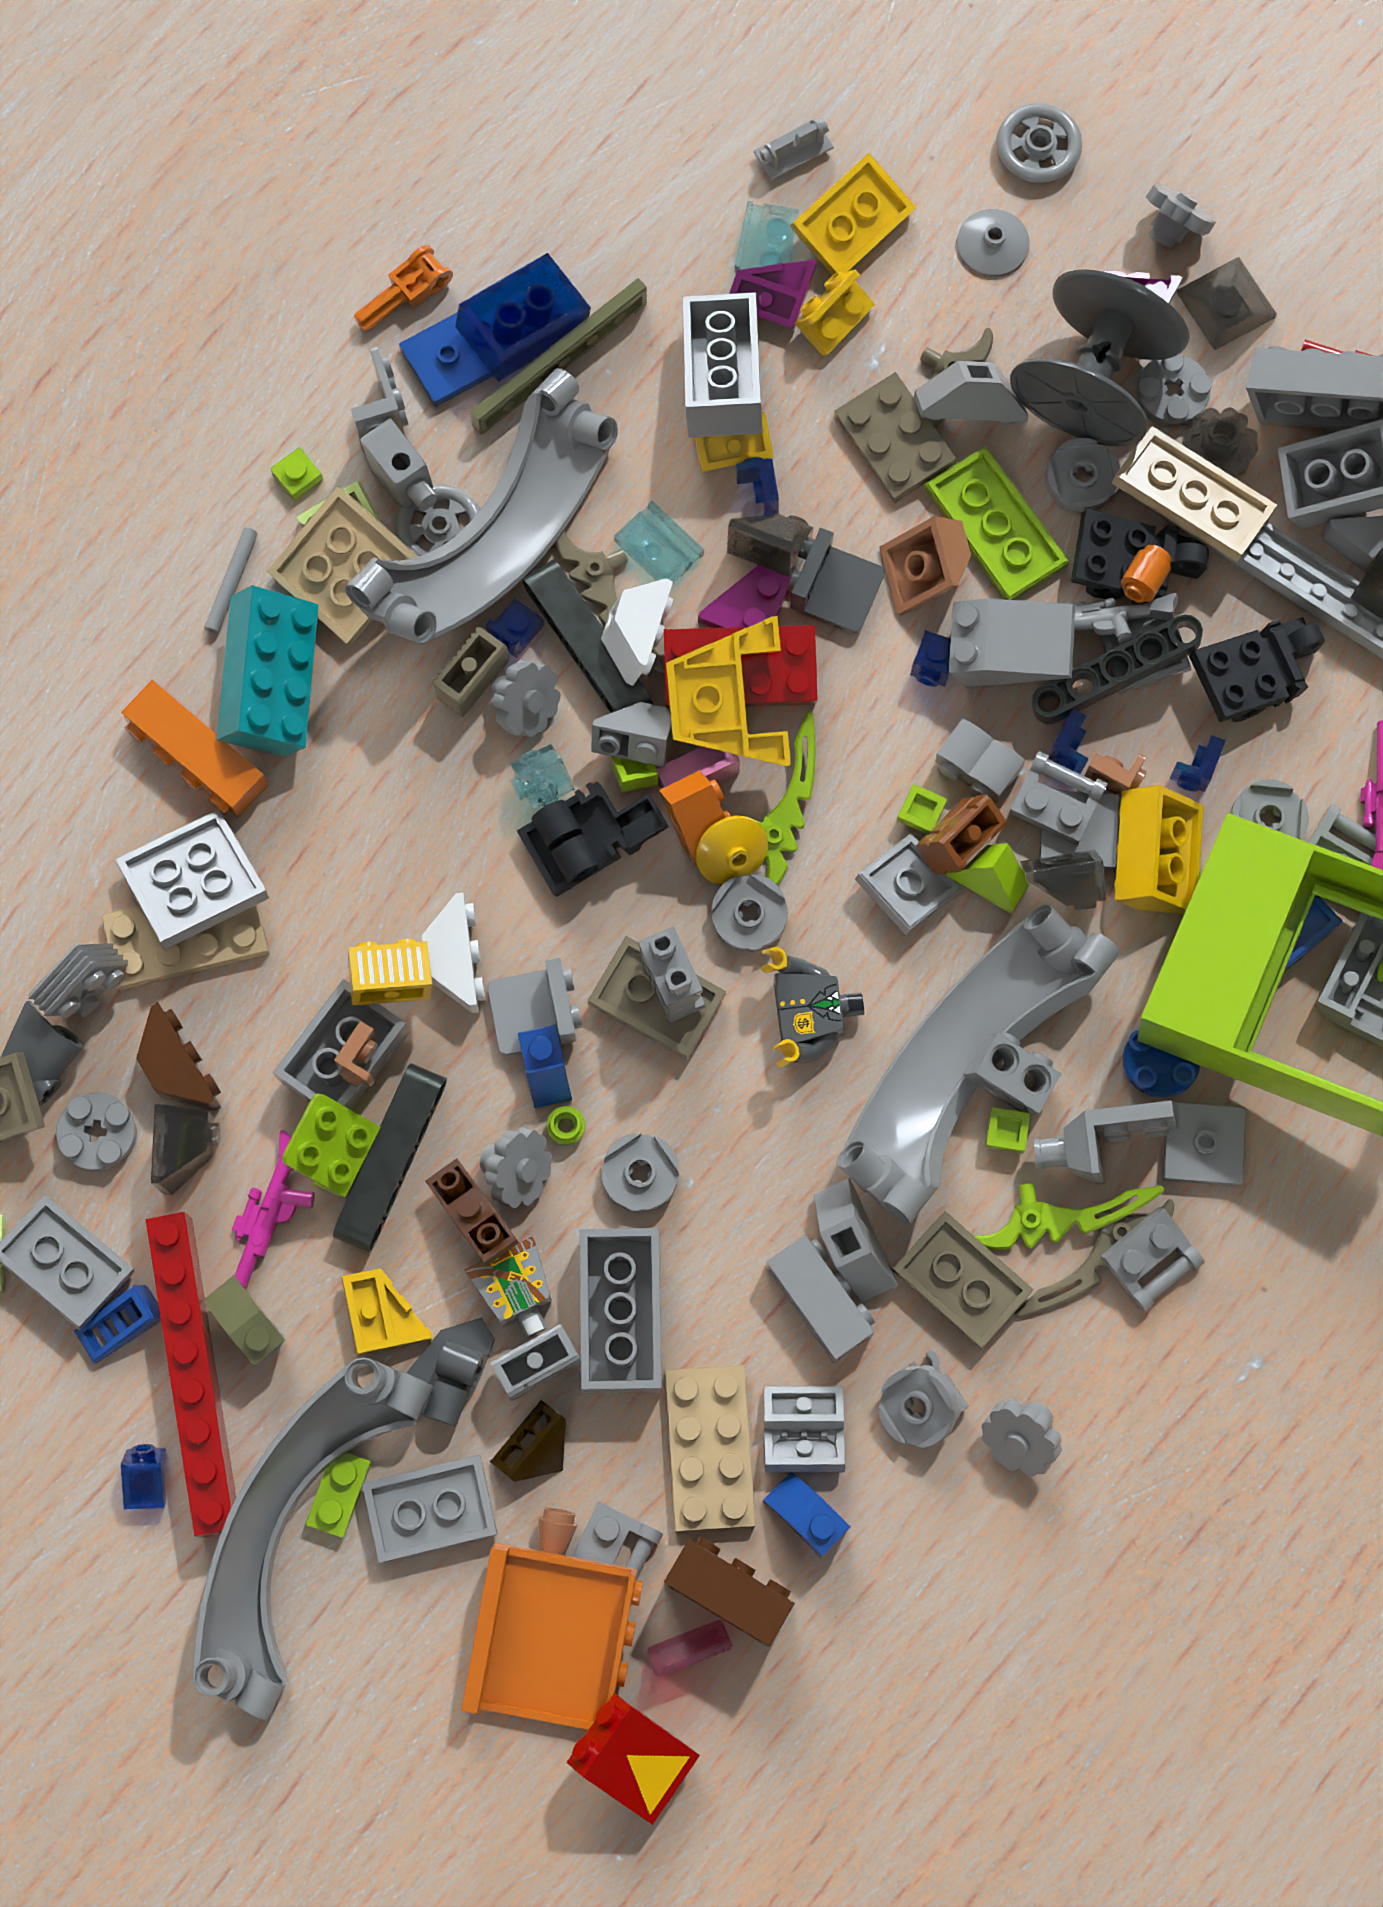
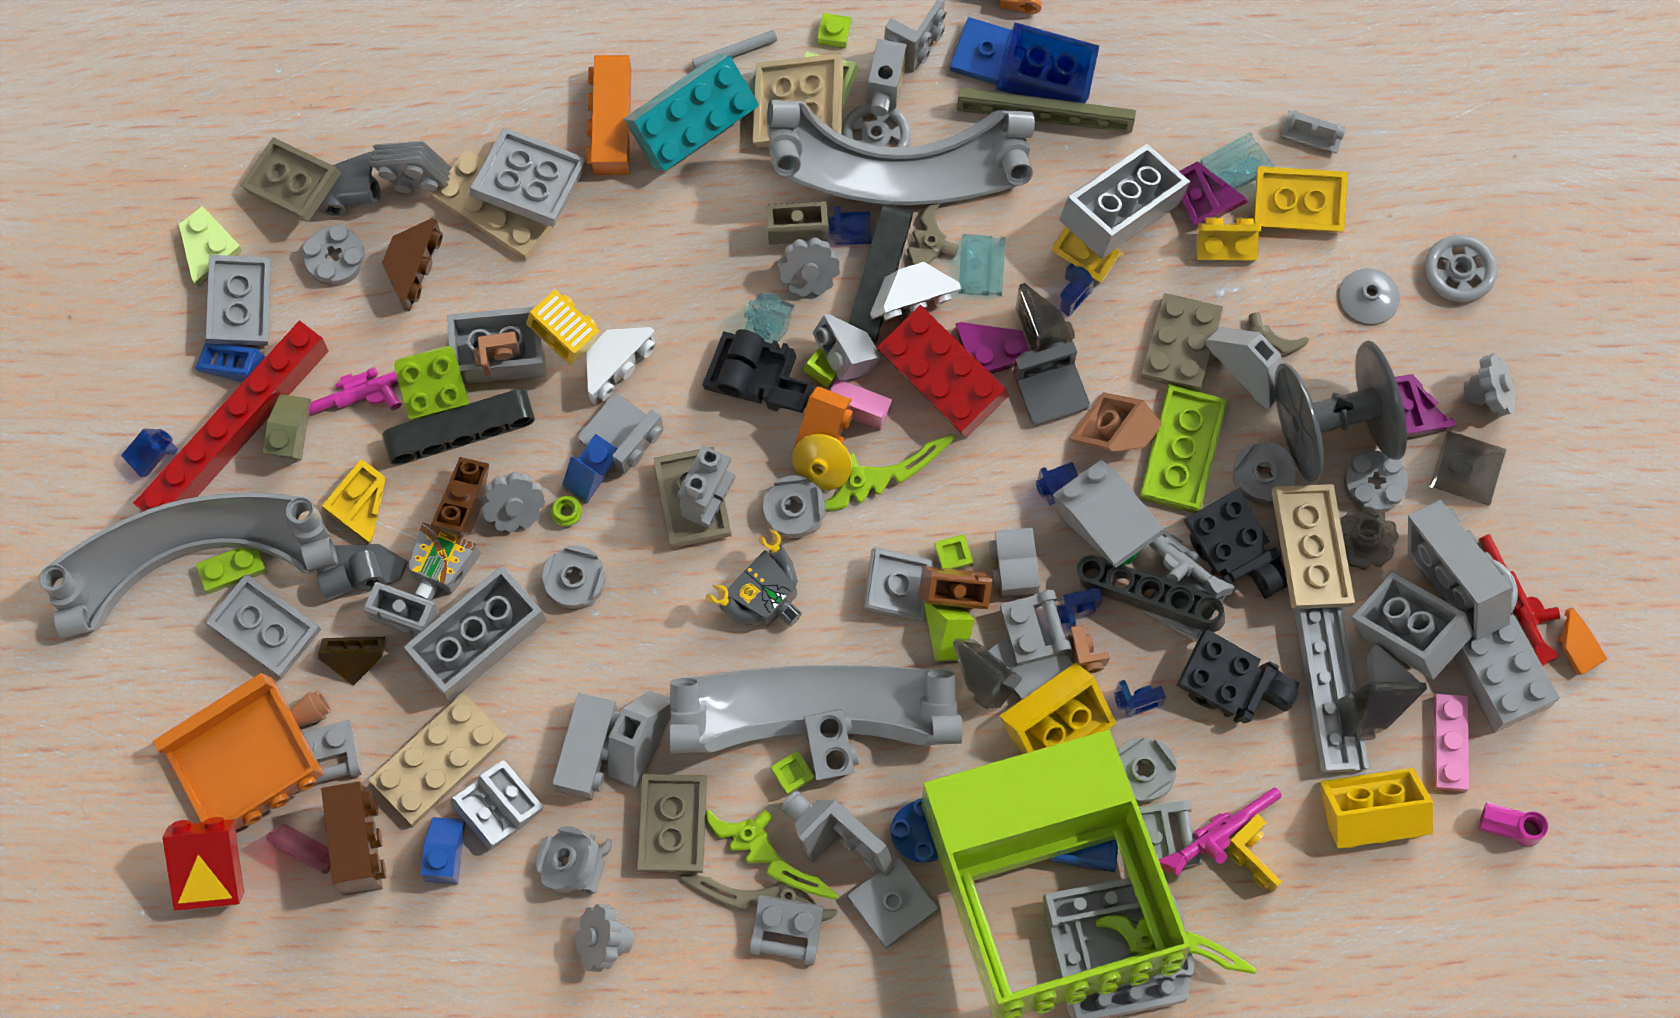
camera: 50 degrees right, 5 degrees down
(180, 1145) = (360, 303): clear smoke slope -> none
(710, 700) = (901, 364): yellow wing -> none
(1146, 573) = (1227, 557): orange brick -> none

